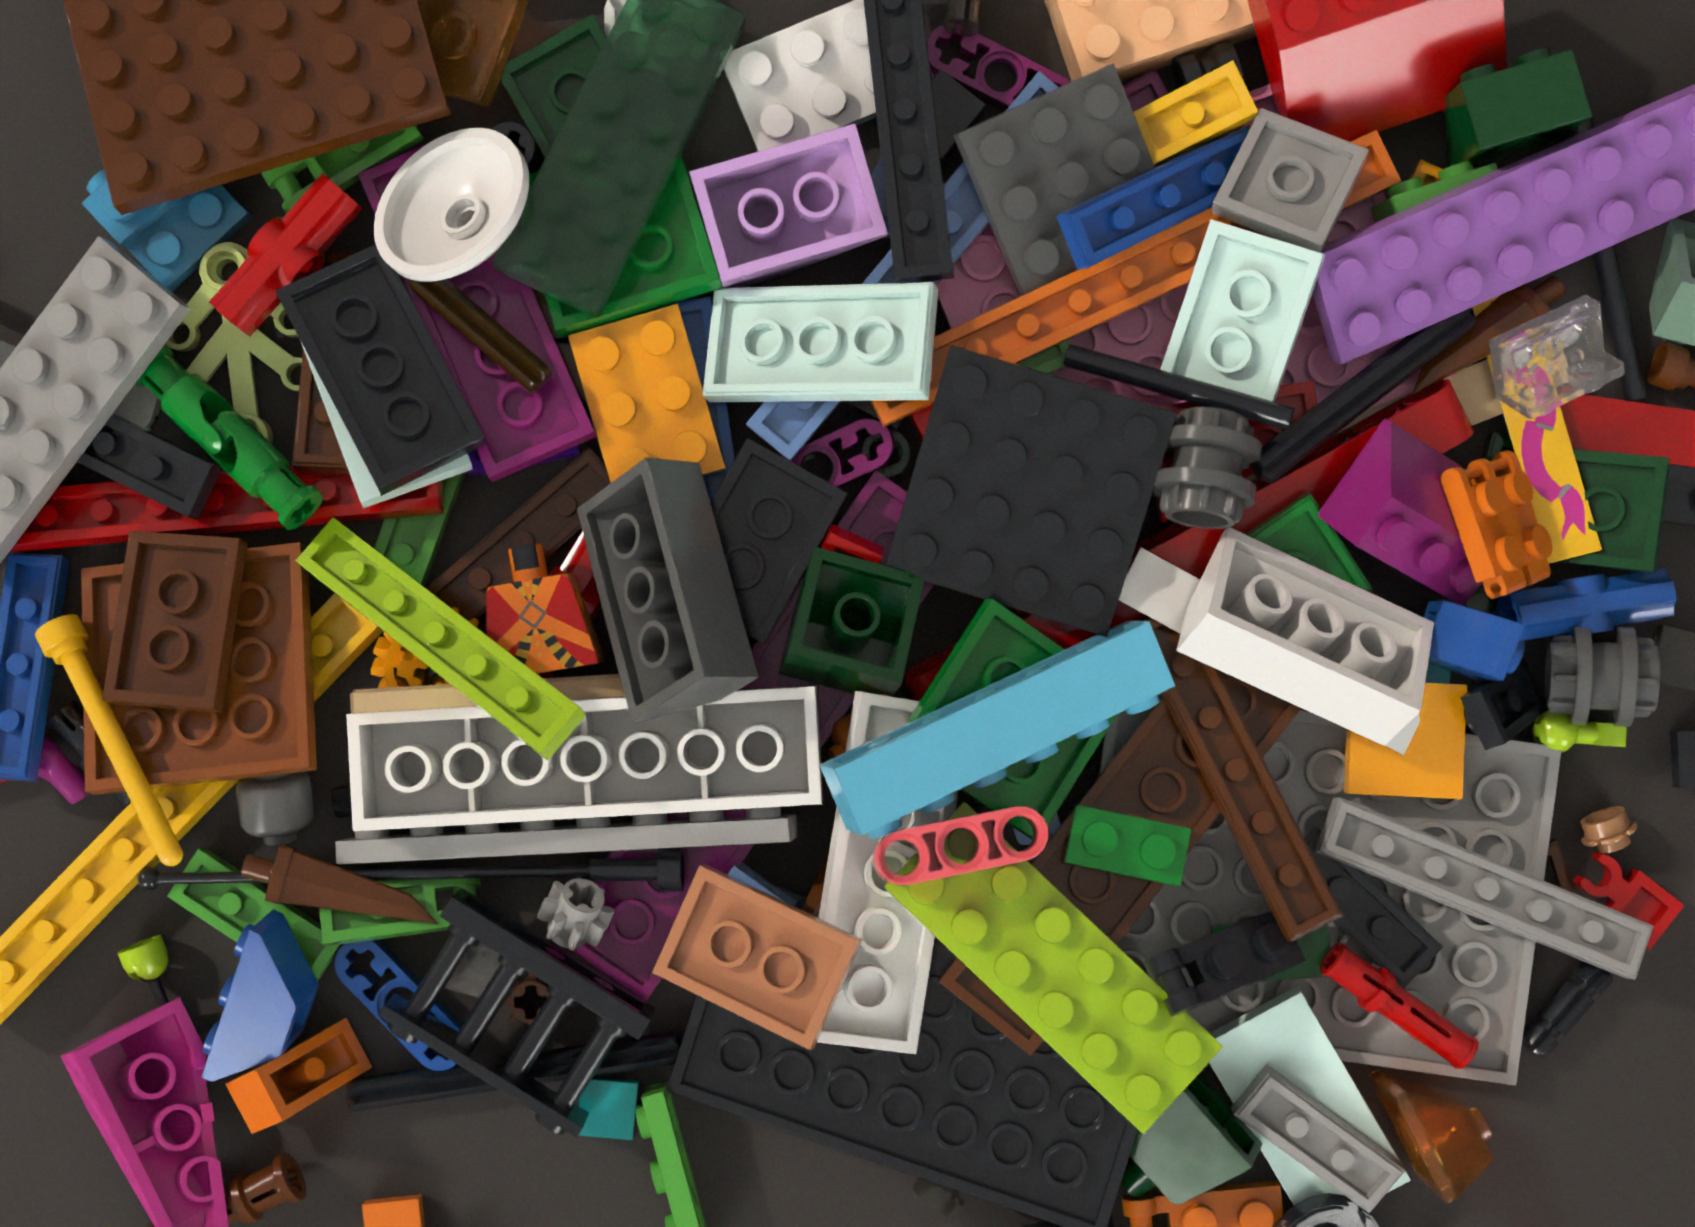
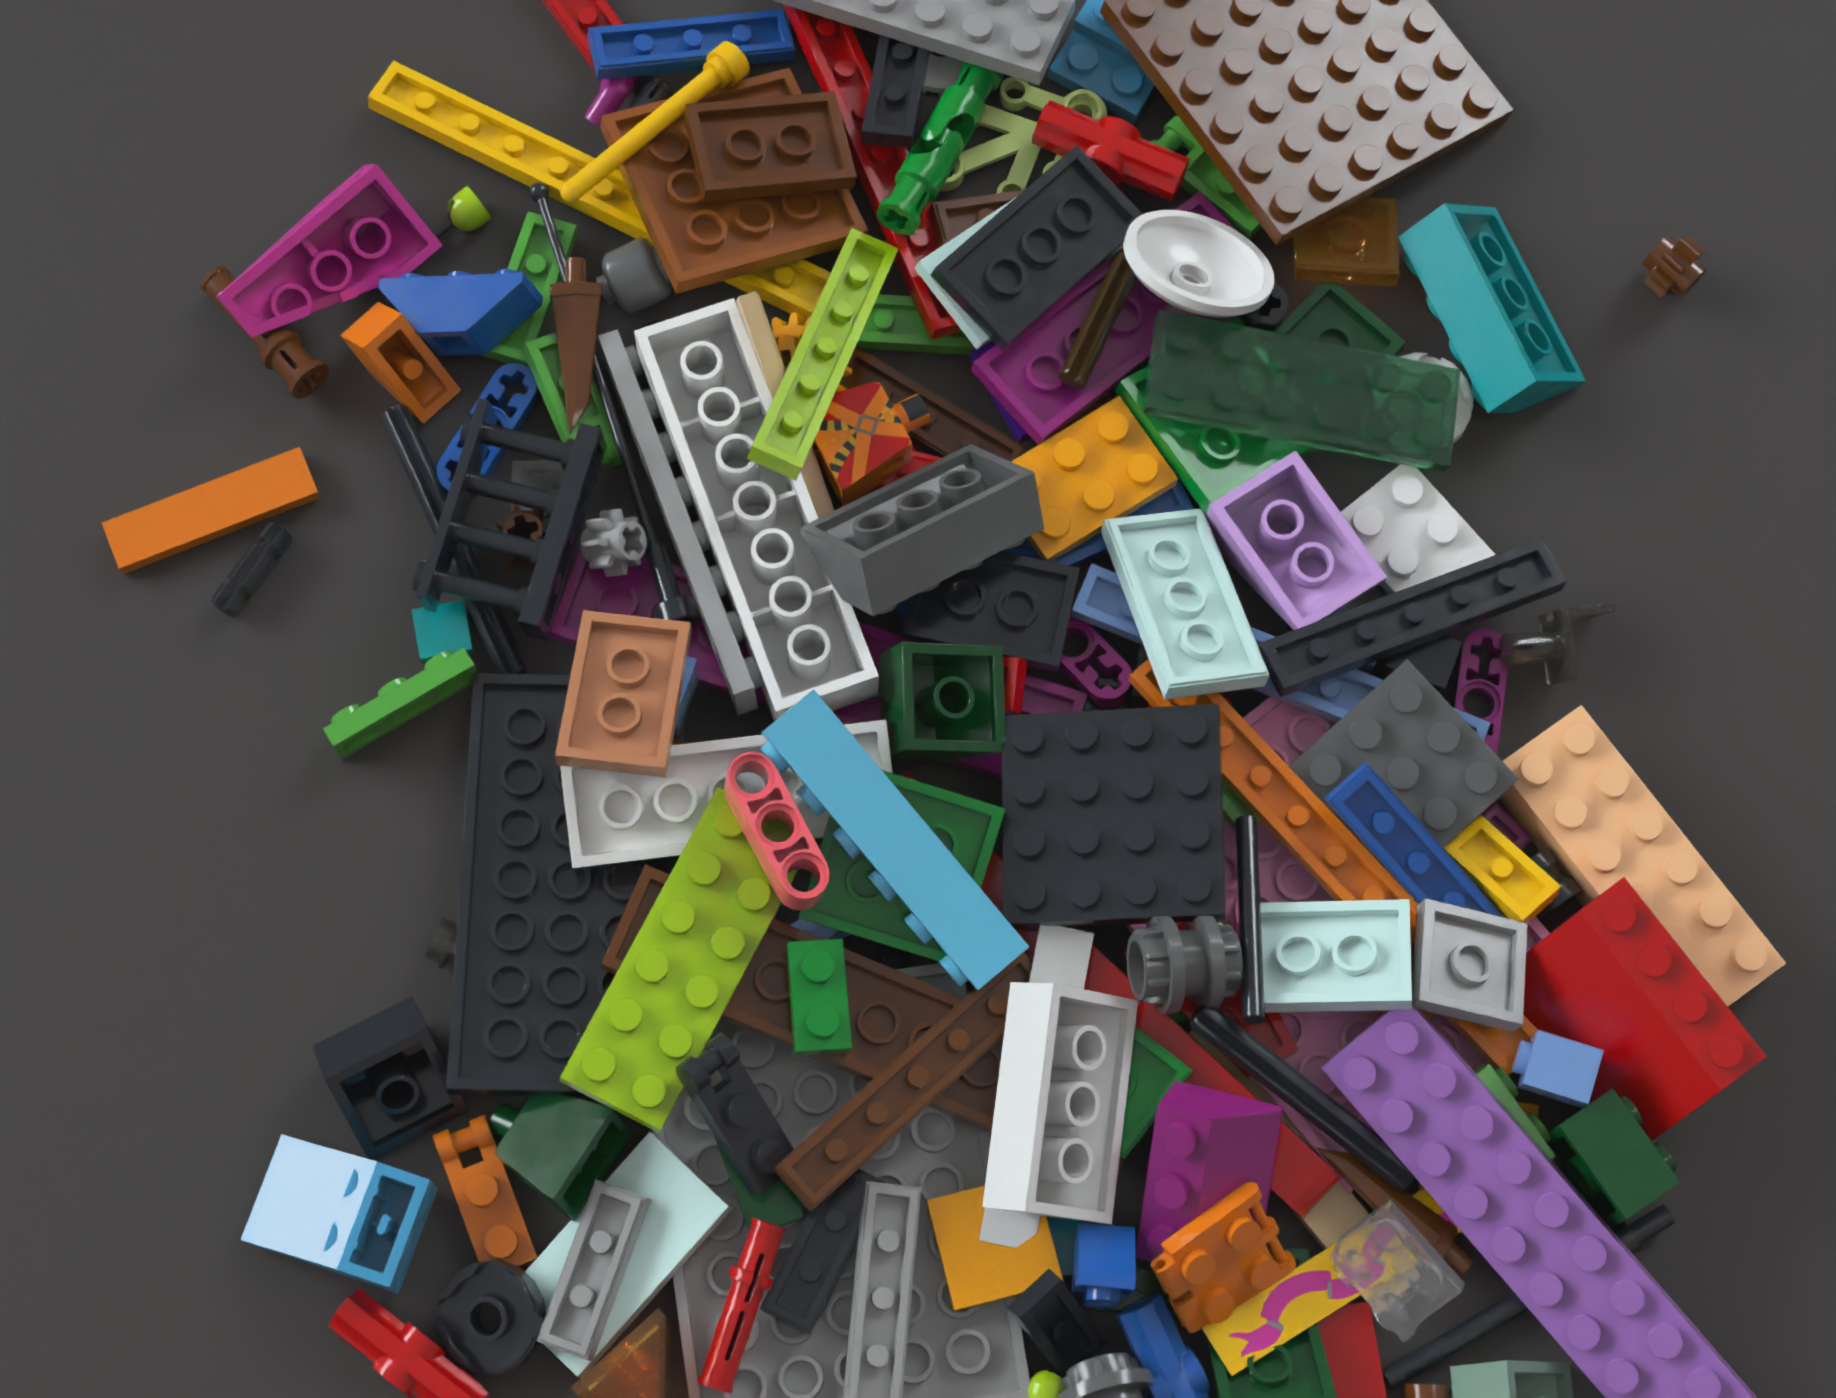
camera: 70 degrees right, 15 degrees down
(1420, 129) = (1557, 1068): none -> medium blue brick

